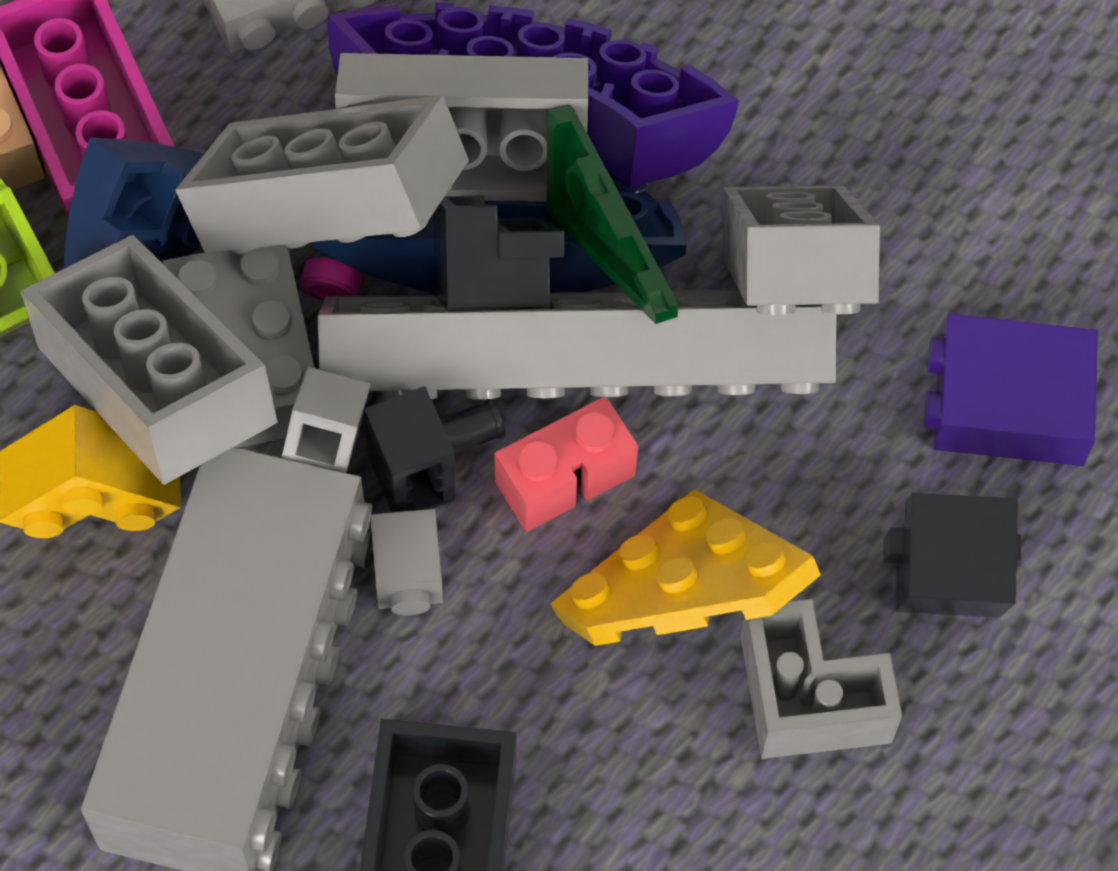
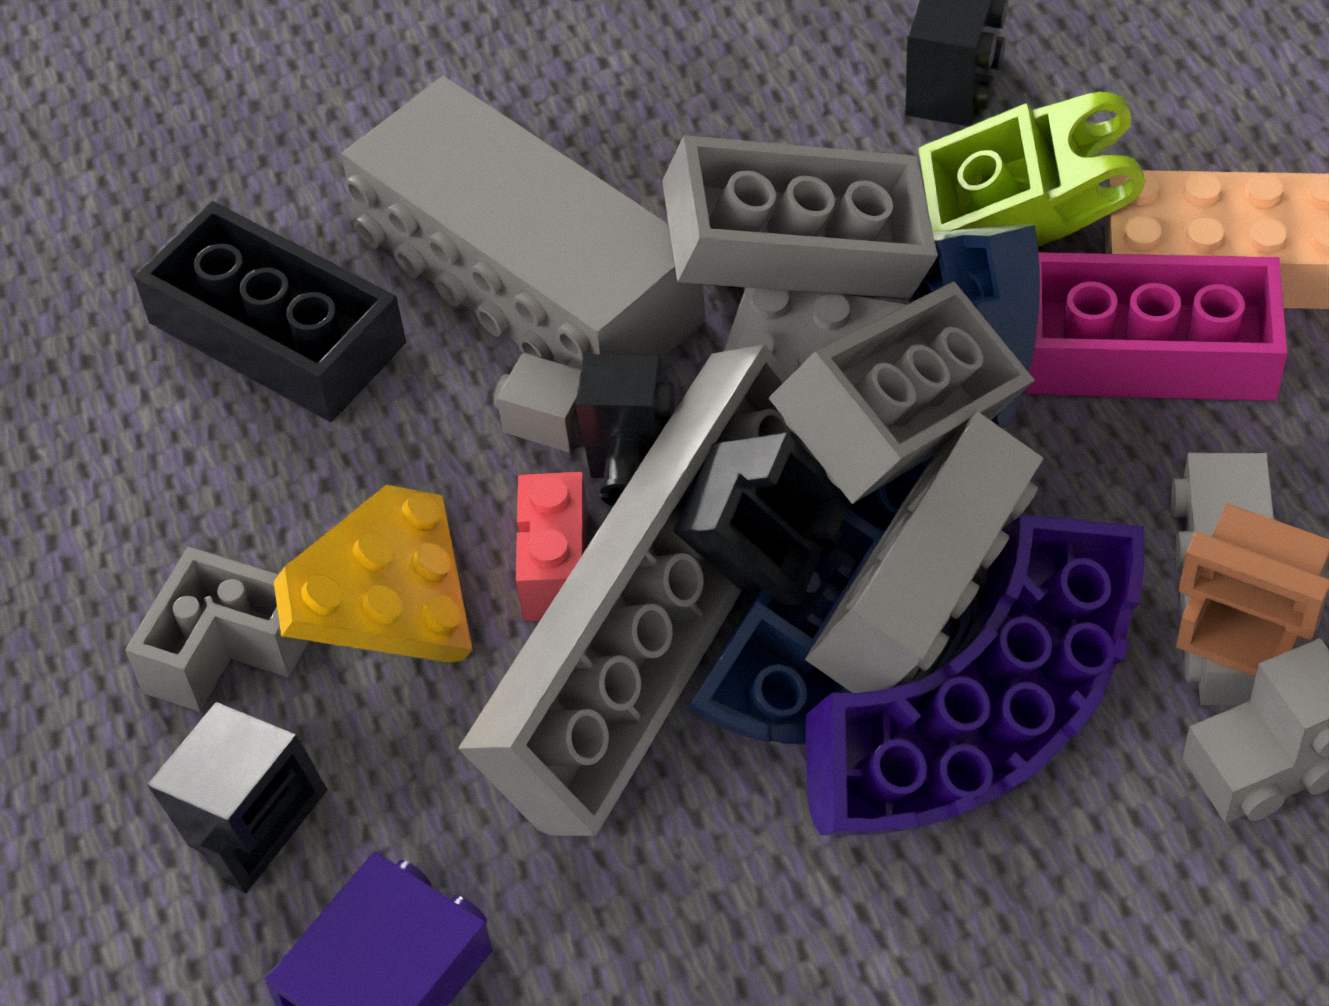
camera: 125 degrees right, 10 degrees down
(326, 420) = (670, 326): light grey brick -> none
(596, 218) = (731, 601): dark green wing -> none
(801, 248) = (613, 770): light grey brick -> none

